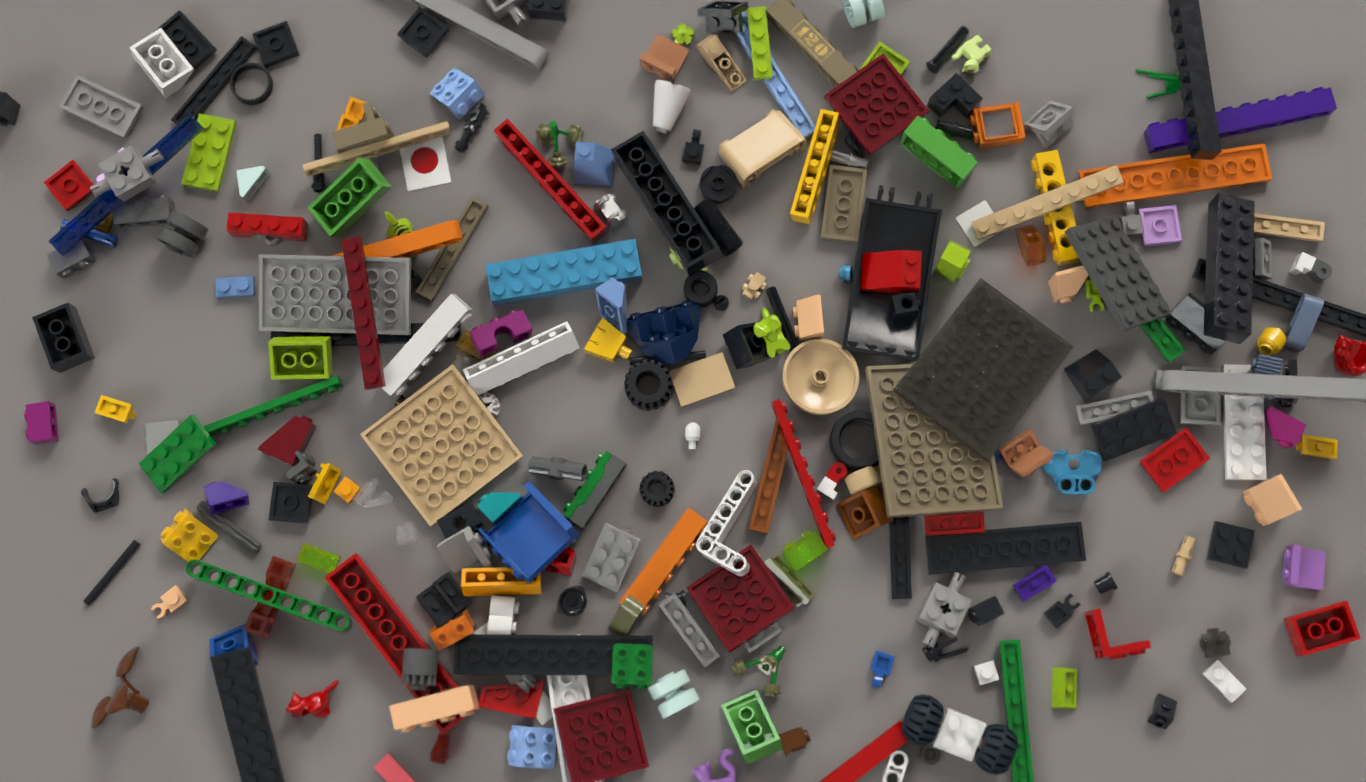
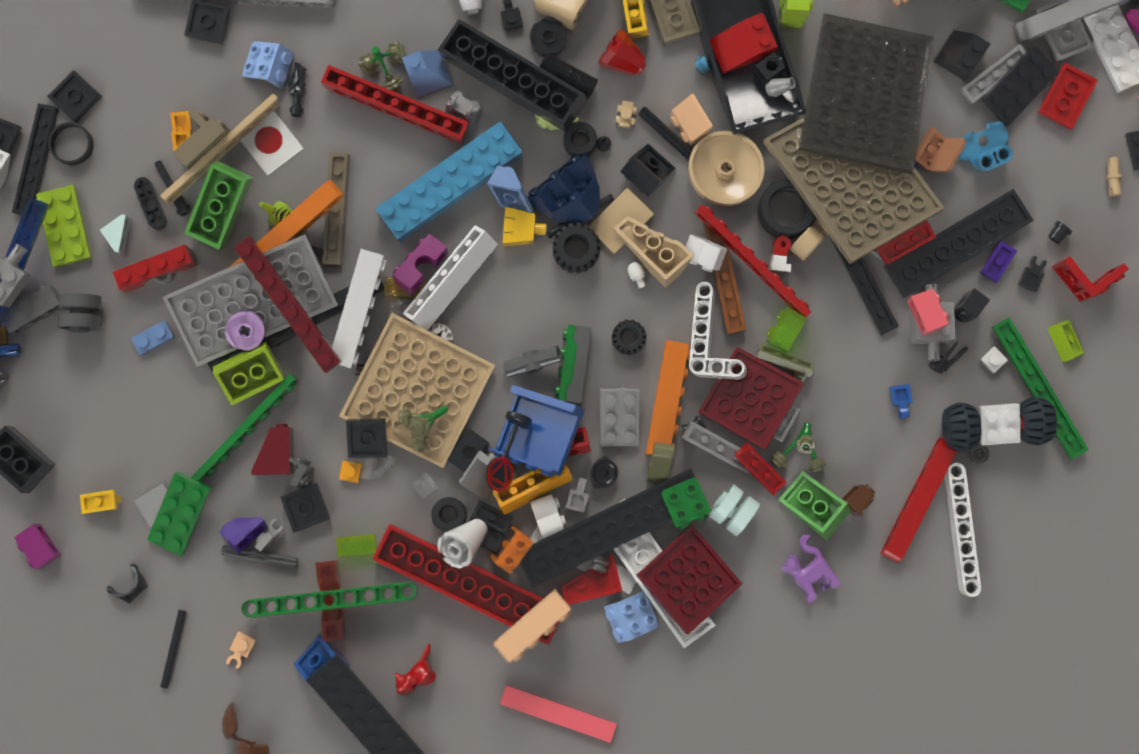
camera: 35 degrees left, 5 degrees up
(188, 536) = (227, 583): yellow bracket -> none
(241, 513) = (266, 539): none -> light grey plate
(287, 162) = (150, 189): none -> black beam
(324, 483) = (327, 475): yellow plate -> none
(326, 315) = (246, 319): none -> lavender plate
(375, 466) = (367, 438): none -> black tile
(405, 562) = (437, 511): none -> black tyre
(411, 601) = (462, 543): none -> white cone
(419, 668) = (501, 597): dark grey gear -> none
(424, 478) = (419, 425): none -> olive plant
(440, 750) = (552, 661): clear red cone -> none
(477, 552) = (500, 470): none -> black piece
(497, 504) = (493, 419): teal slope -> none
(537, 613) = (577, 498): none -> light grey plate
(717, 667) = (760, 468): none -> red tile
(720, 424) = (658, 253): none -> tan wedge
(762, 444) = (706, 253): none -> white brick
(770, 330) = (661, 147): lime animal -> none
(776, 231) = (622, 55): none -> red cone
(864, 512) = (822, 270): dark orange slope -> none
(902, 324) = (779, 86): none -> light grey cone
(941, 597) = (928, 312): none -> coral brick

